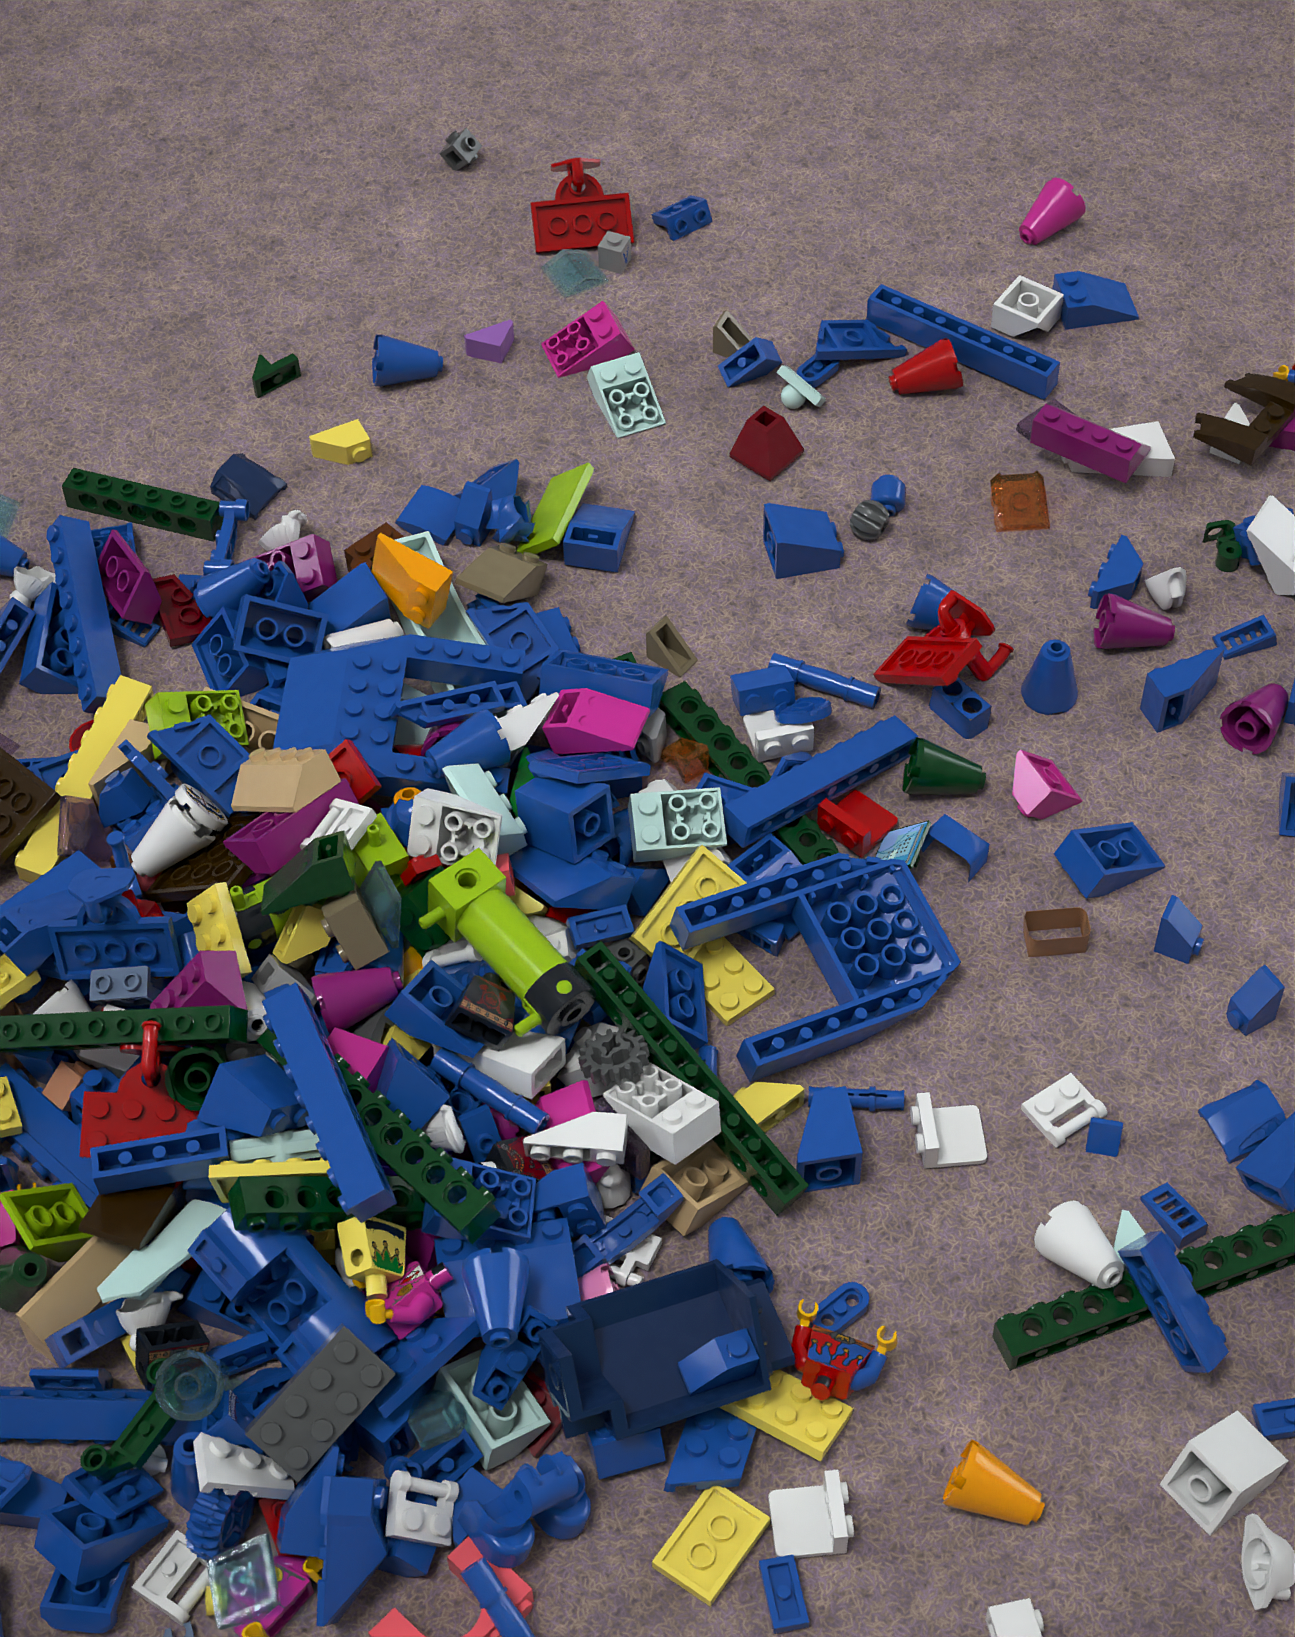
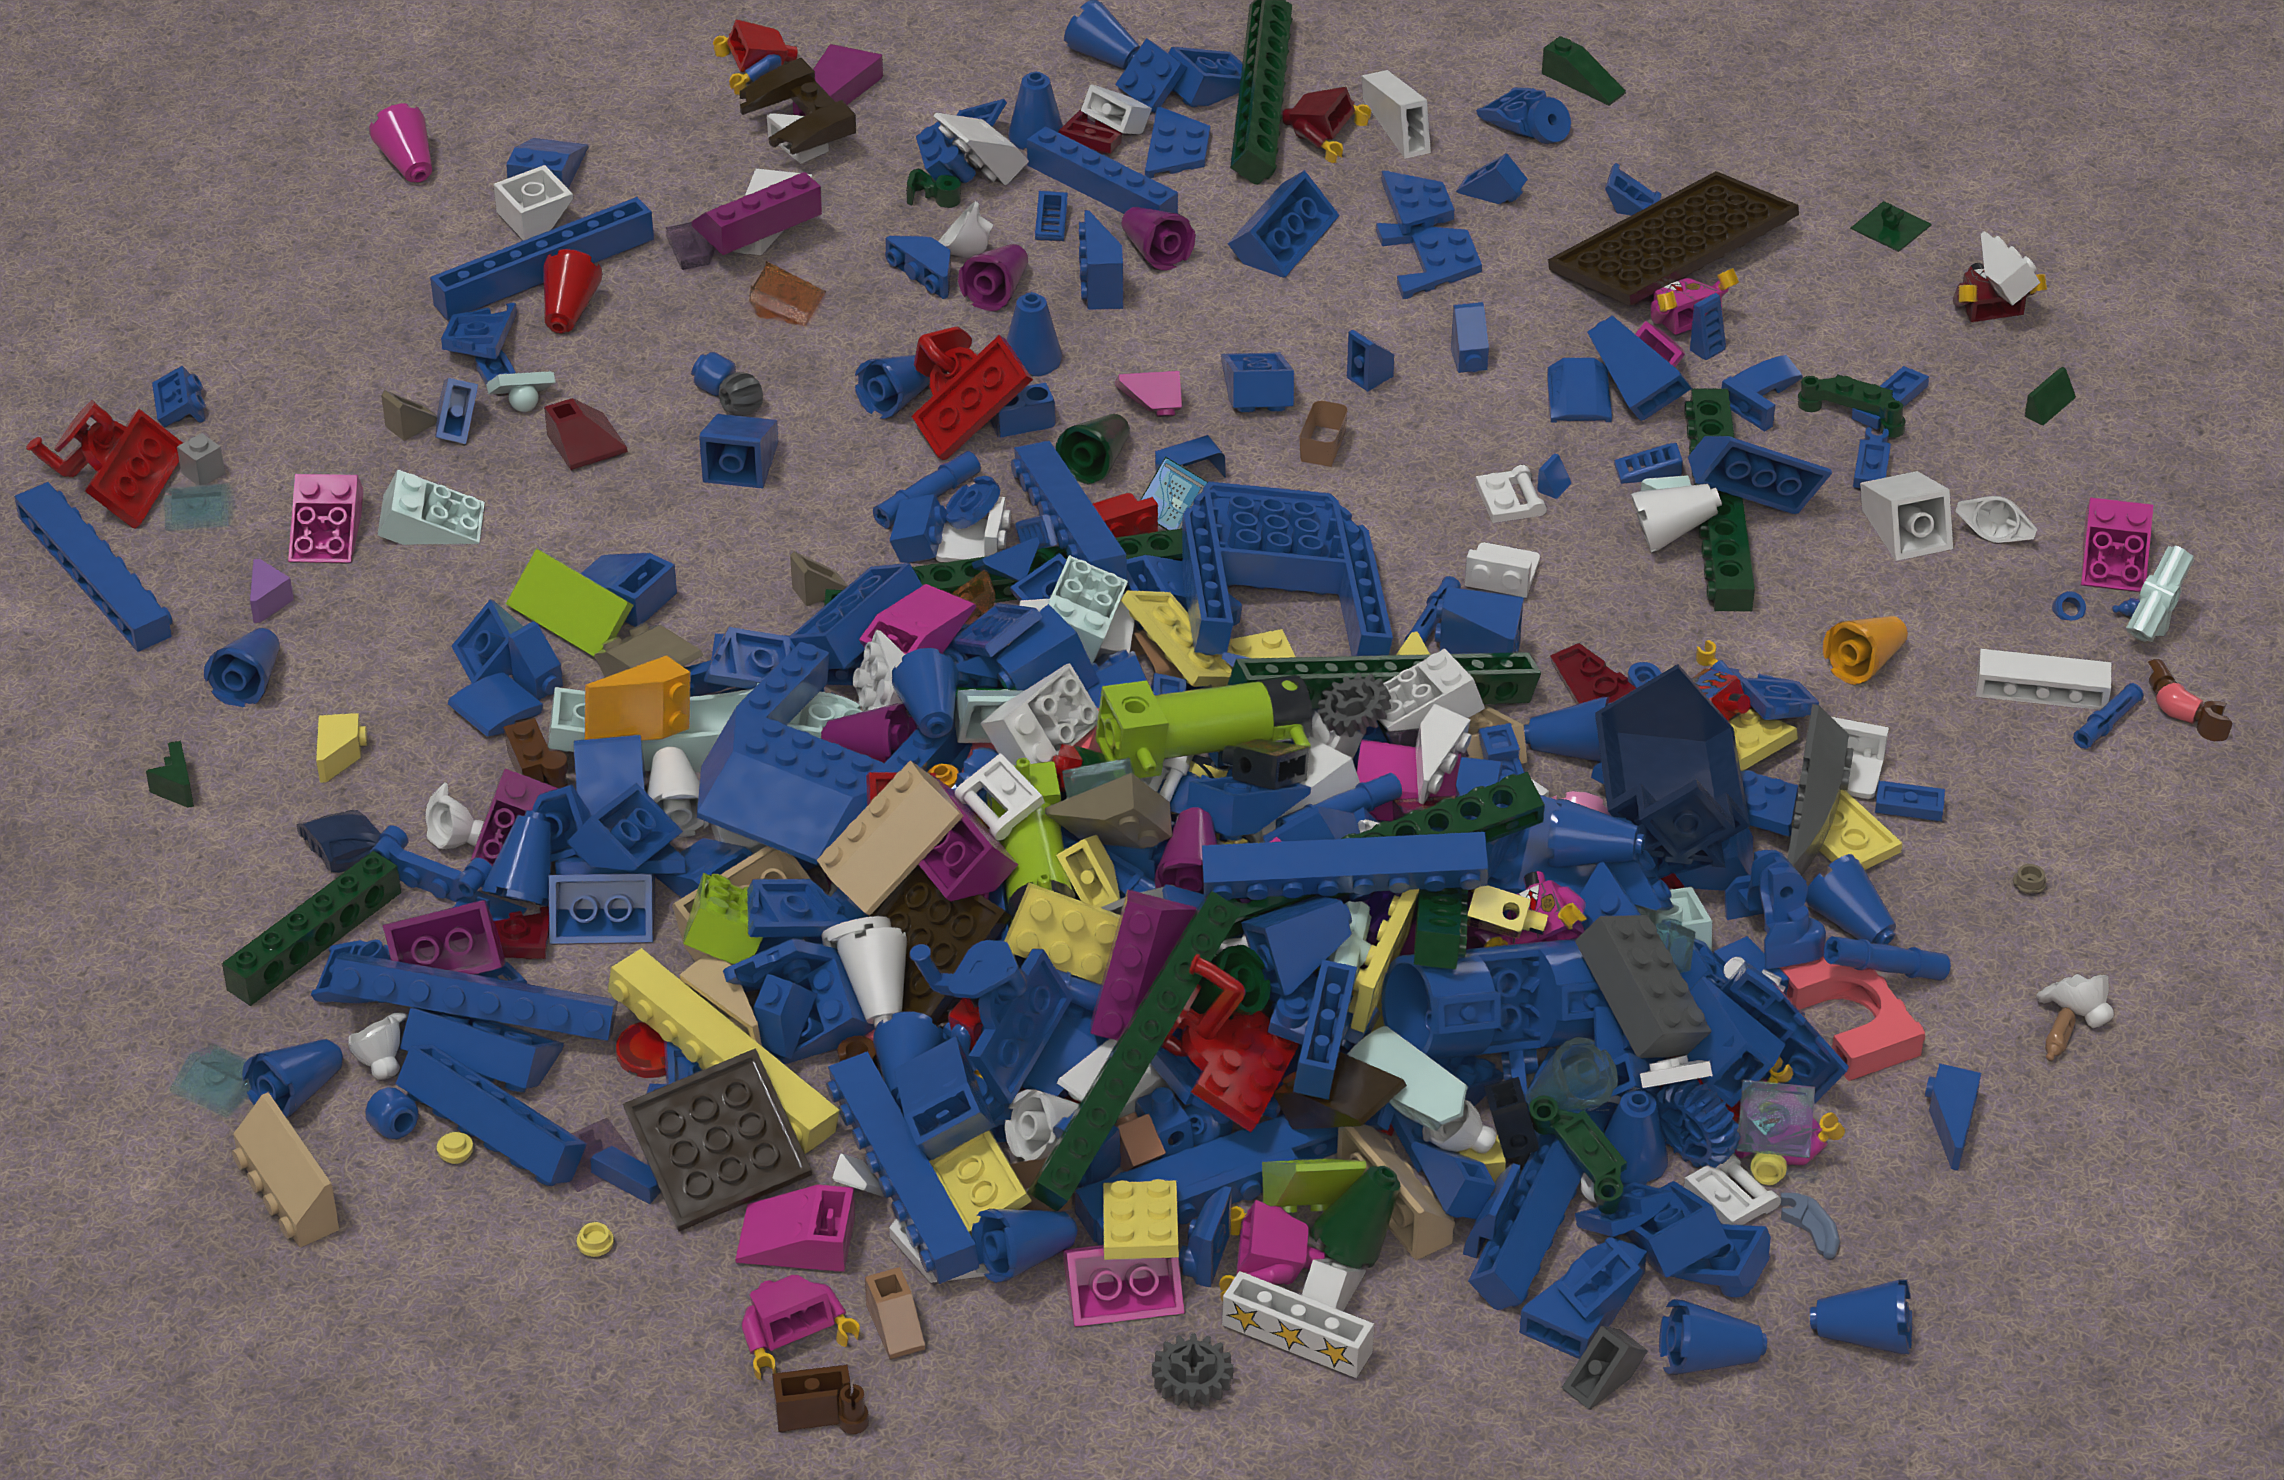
camera: 70 degrees left, 10 degrees down
(81, 830) = (796, 1063): clear purple wing -> none
(122, 986) = (1056, 1048): sand blue bracket -> none
(315, 873) = (1065, 812): dark green slope -> none
(459, 703) = (849, 701): blue wedge -> none
(471, 246) = (94, 566): none -> blue brick
(510, 519) = (569, 633): blue hair -> none
(595, 1577) = (1851, 901): none -> blue cone
(719, 1362) = (1698, 742): blue slope -> none
(735, 760) = (1011, 562): none -> blue slope
(743, 1492) = (1819, 786): none -> dark grey wedge
(818, 1259) = (1588, 675): none -> dark red wing
(866, 1421) = (1777, 696): none -> blue wing

